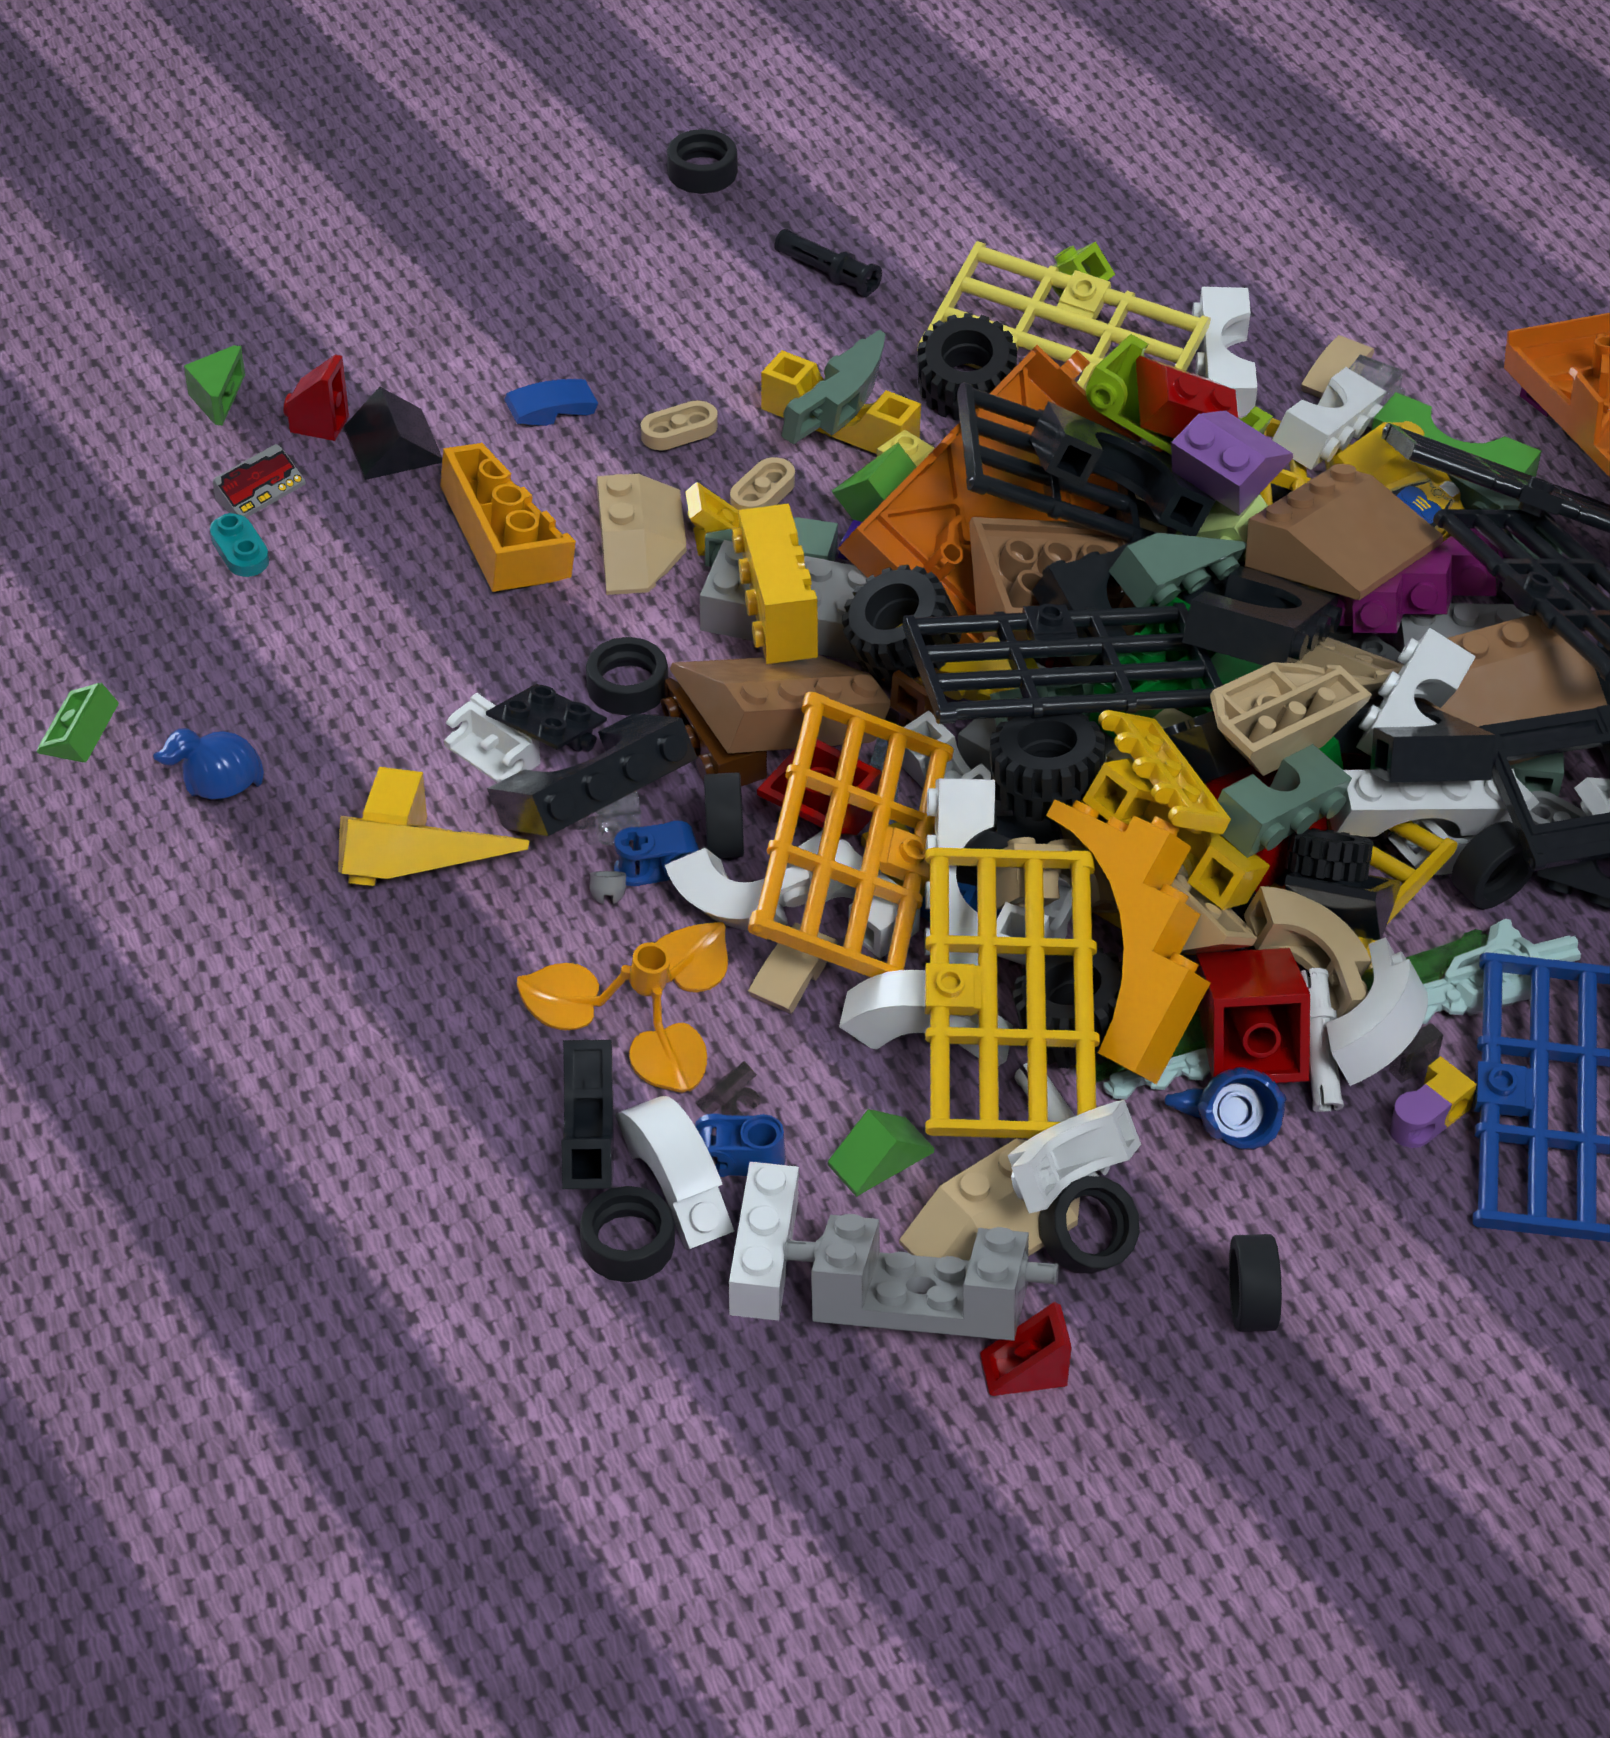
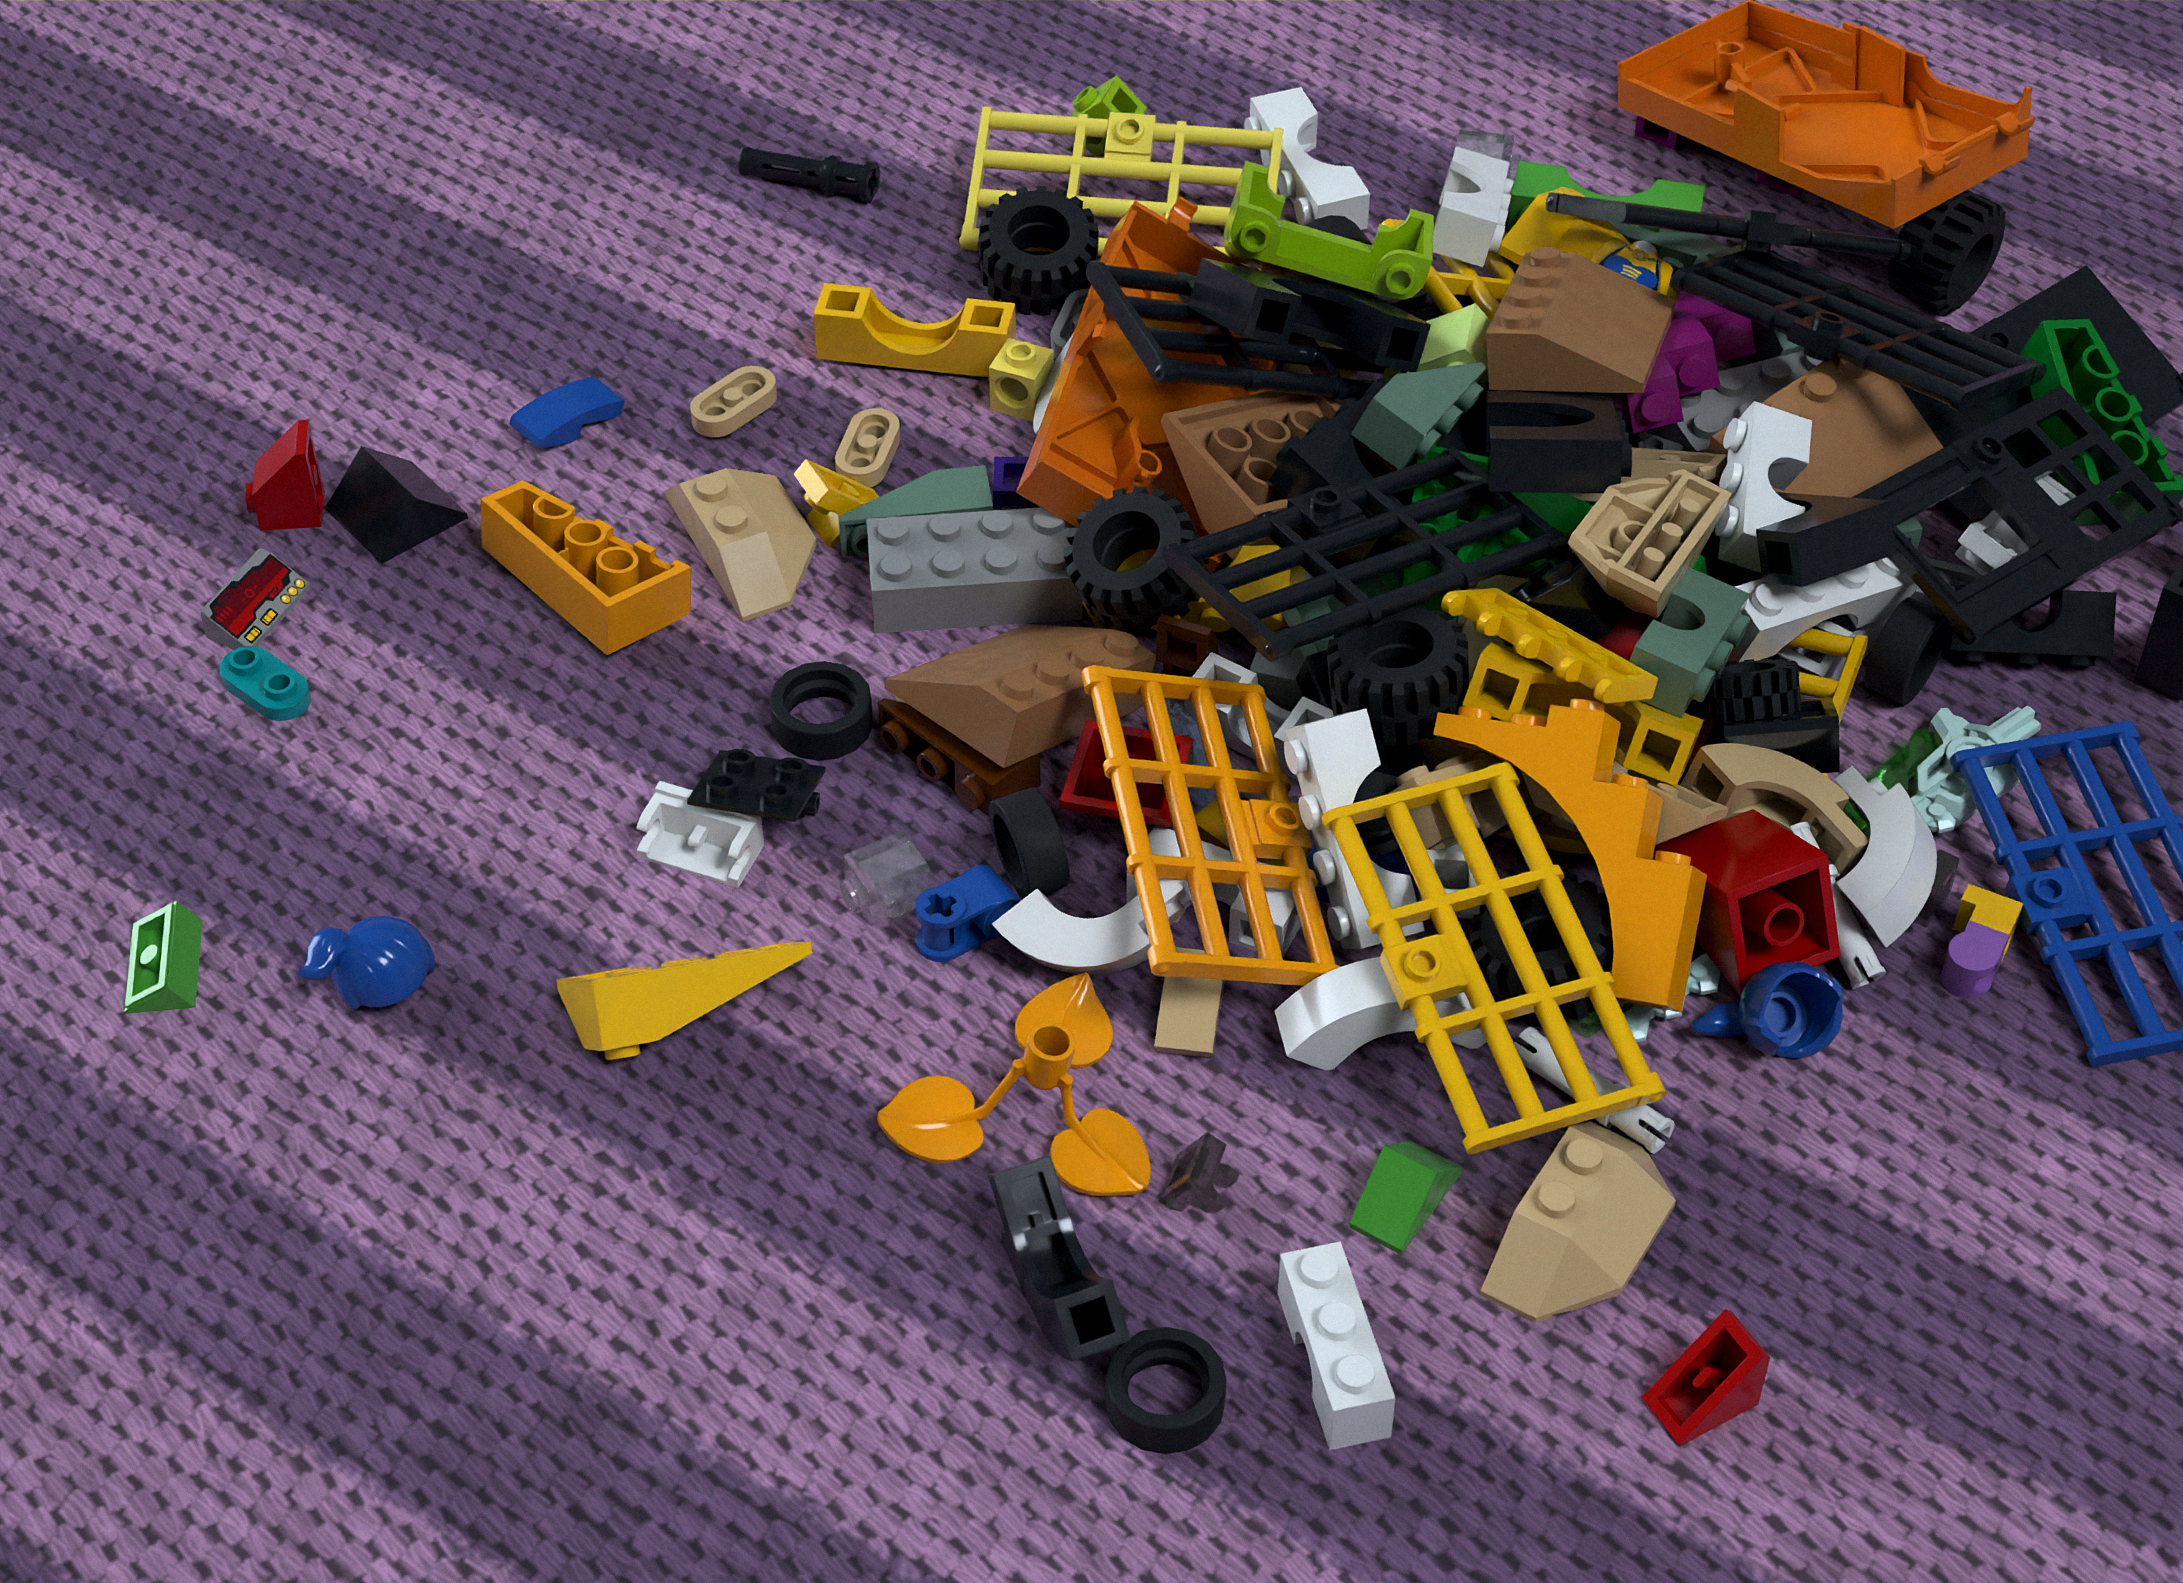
camera: 20 degrees left, 0 degrees up
(215, 382) = (141, 495): bright green slope -> none
(397, 798) = (628, 936): yellow slope -> none
(607, 883) = (925, 966): light grey hinge -> none
(635, 755) = (892, 806): black arch -> none
(682, 1164) = (1193, 1275): white arch -> none
(702, 178) = (608, 114): black tyre -> none
(742, 1141) = (1239, 1236): blue piece -> none
(778, 584) = (971, 551): yellow wedge -> none
(841, 394) = (913, 312): sand green slope -> none
(874, 482) = (1009, 410): bright green slope -> none
(879, 1290) = (1608, 1335): light grey brick -> none
(1071, 1151) = (1652, 1122): white arch -> none
(1121, 1212) = (1731, 1191): black tyre -> none
(1174, 397) = (1336, 224): red slope -> none
(1227, 458) = (1428, 274): medium lavender slope -> none
(1255, 1282) = (1917, 1211): black tyre -> none
(1337, 355) = (1431, 152): tan slope -> none

